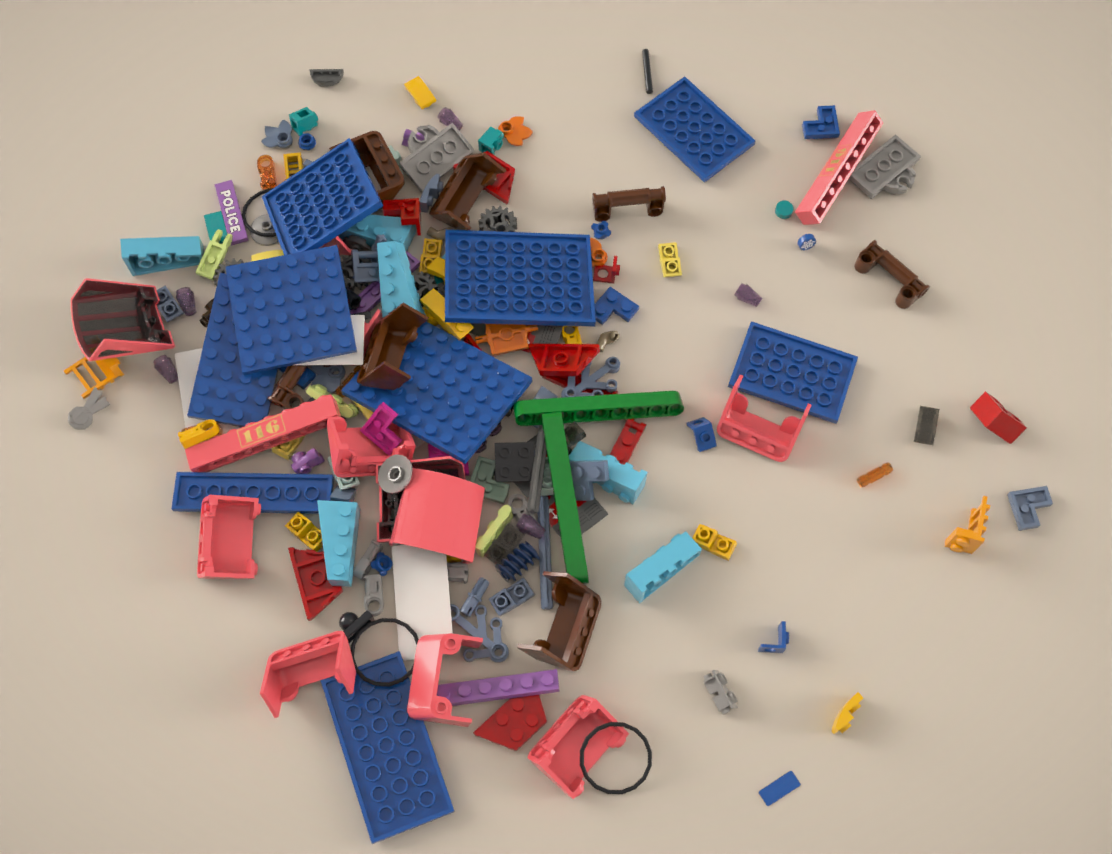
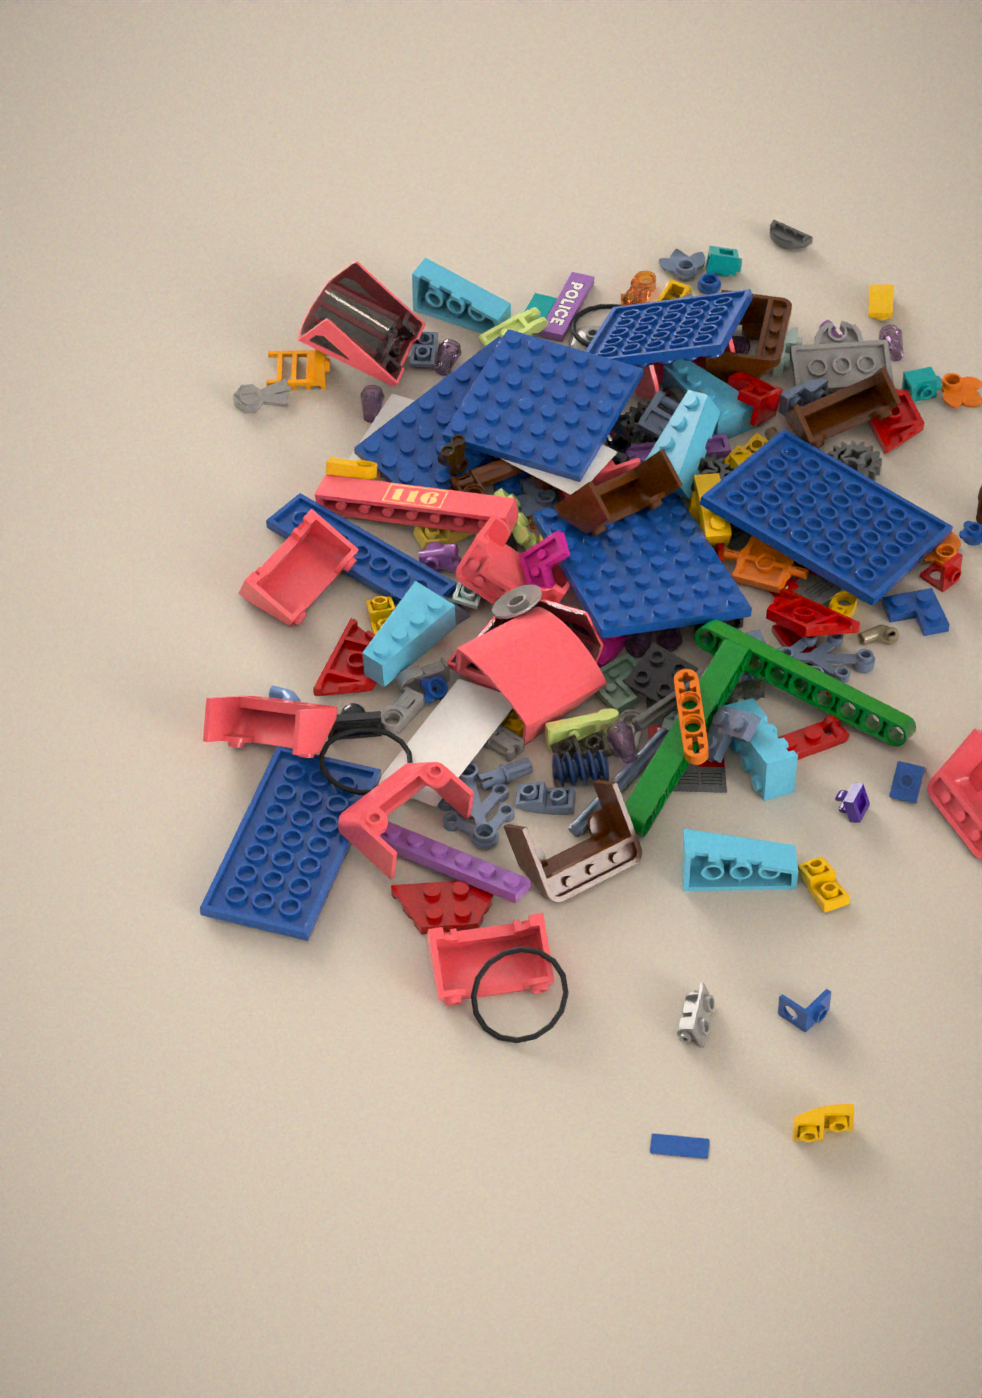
camera: 40 degrees right, 20 degrees down
(262, 383) = (453, 455): none -> dark brown plate
(293, 634) = (282, 693): none -> medium blue arm
(566, 484) = (691, 716): none -> orange beam
(687, 473) = (854, 802): none -> dark purple tile

